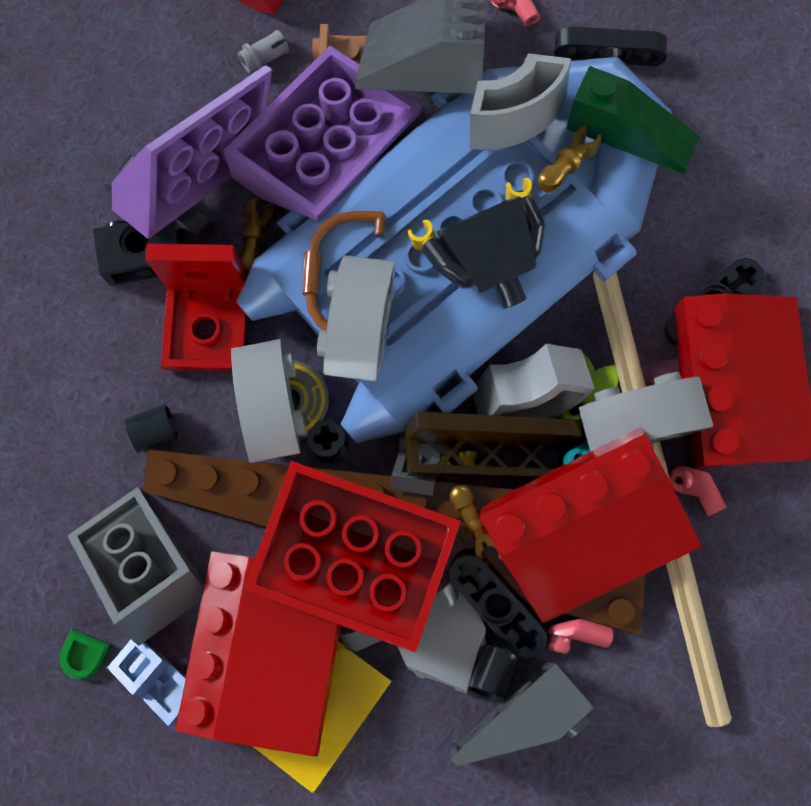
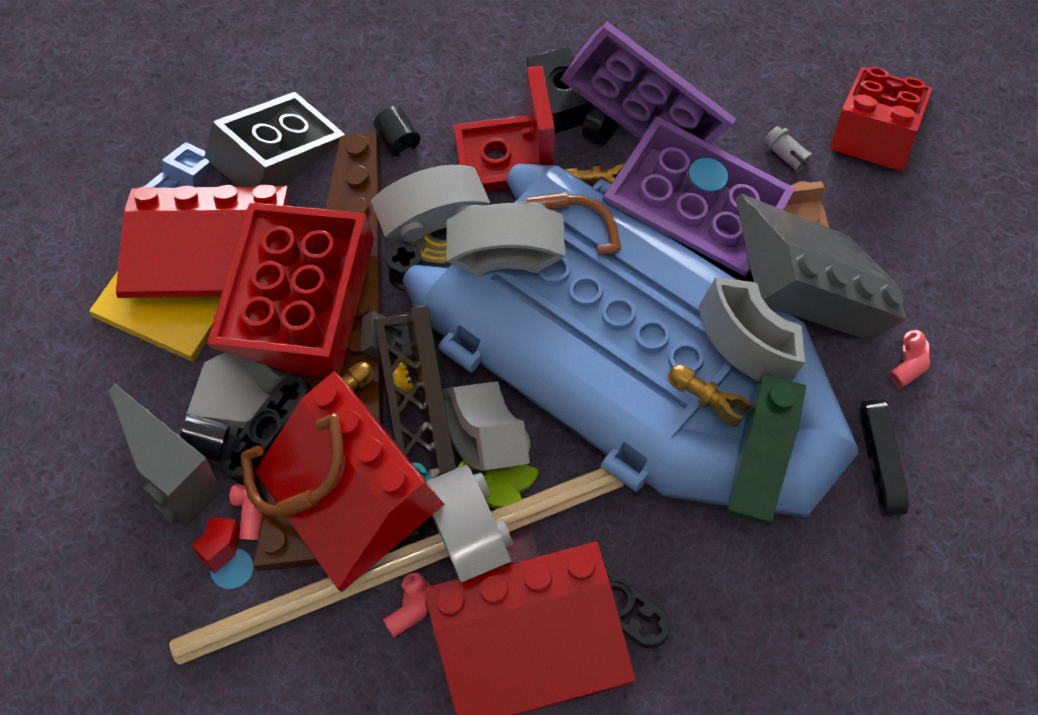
camera: 75 degrees right, 15 degrees down
(83, 655) = (195, 124): green tile -> none
(305, 116) = (708, 175): none -> dark azure piece
(489, 246) = (598, 333): black torso -> none
(608, 577) = (308, 498): none -> dark orange piece
(613, 669) = (218, 543): none -> red piece
(632, 659) = (235, 572): none -> dark azure piece

